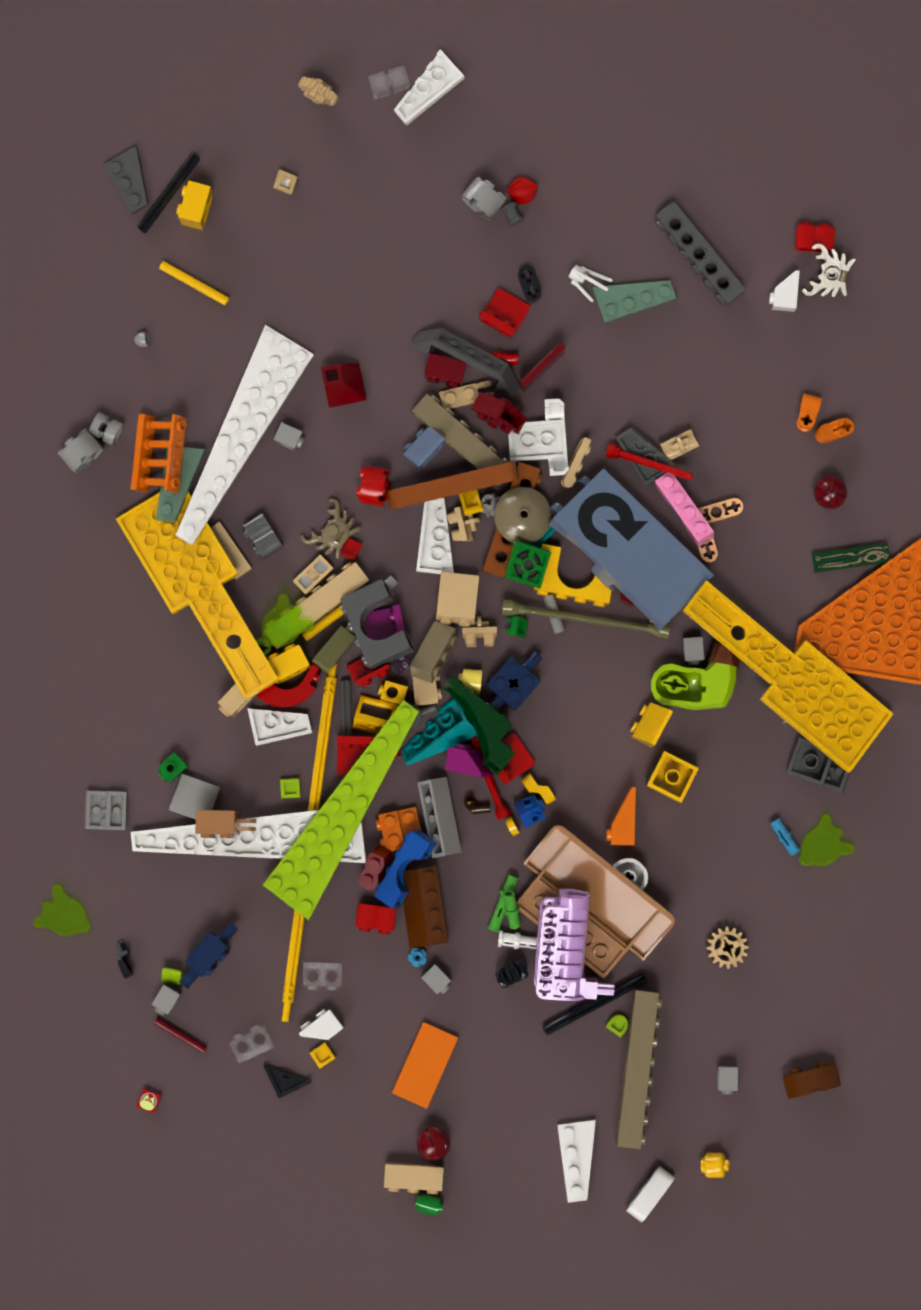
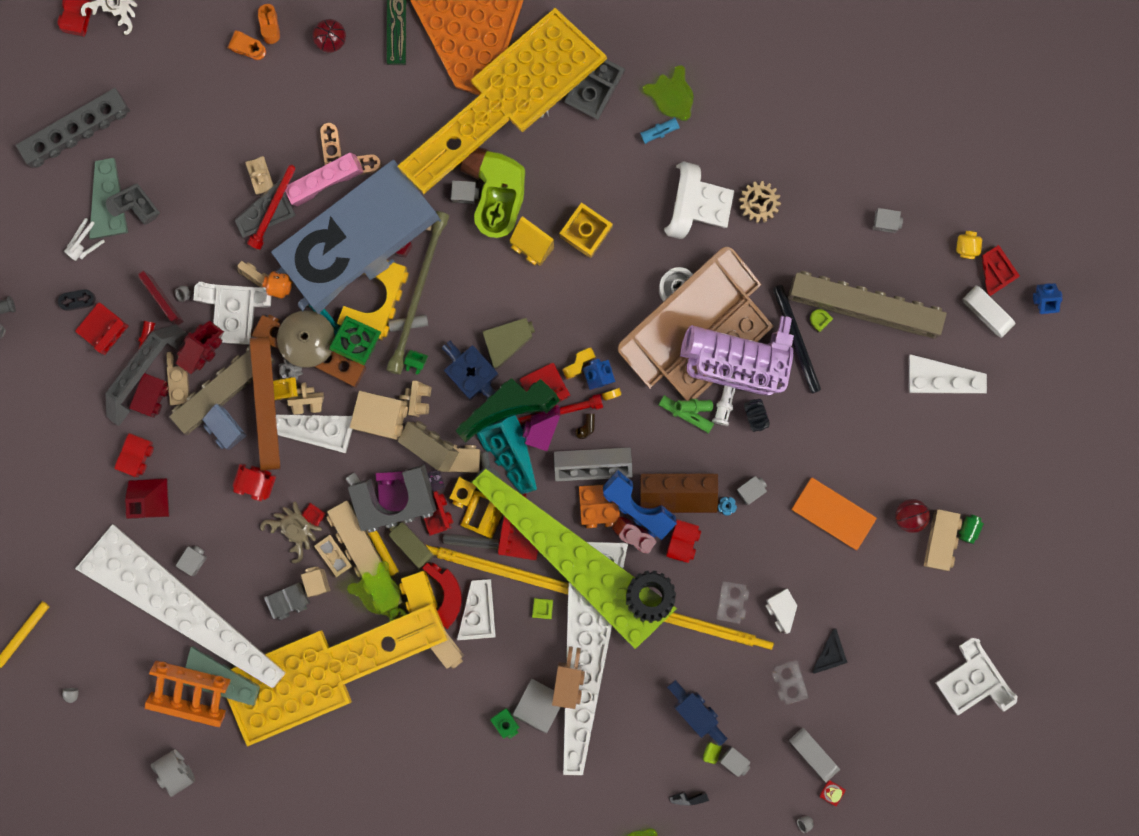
camera: 80 degrees left, 0 degrees up
(105, 810) = (538, 796): light grey slope -> none
(111, 432) = (158, 738): light grey wheel -> none
(114, 1078) = (805, 823): none -> light grey hinge
(180, 1035) = (771, 752): dark red bar -> none
(183, 1077) = (814, 755): none -> light grey beam
(231, 550) = (296, 634): tan tile -> none
(278, 1228) = (975, 681): none -> white piece
(284, 561) = (315, 581): none -> tan brick
(322, 1055) = (810, 613): yellow tile -> none
(332, 892) = (655, 580): none -> black tyre
(384, 364) = (134, 455): none -> red brick
(471, 679) = (461, 412): light yellow piece -> none
(550, 714) = (507, 340): none -> olive slope
(551, 387) = (182, 290): none -> light grey hinge
(571, 480) = (277, 284): none -> orange head
(623, 825) = (626, 284): orange slope -> none
(637, 325) = (134, 199): none -> dark grey brick
(671, 1251) = (1047, 298): none -> blue brick
(693, 1197) = (997, 270): none -> red wing
(717, 885) = (698, 202): none -> white piece
(785, 294) = (127, 50): white slope -> none
(811, 1080) = (900, 148): reddish brown brick -> none

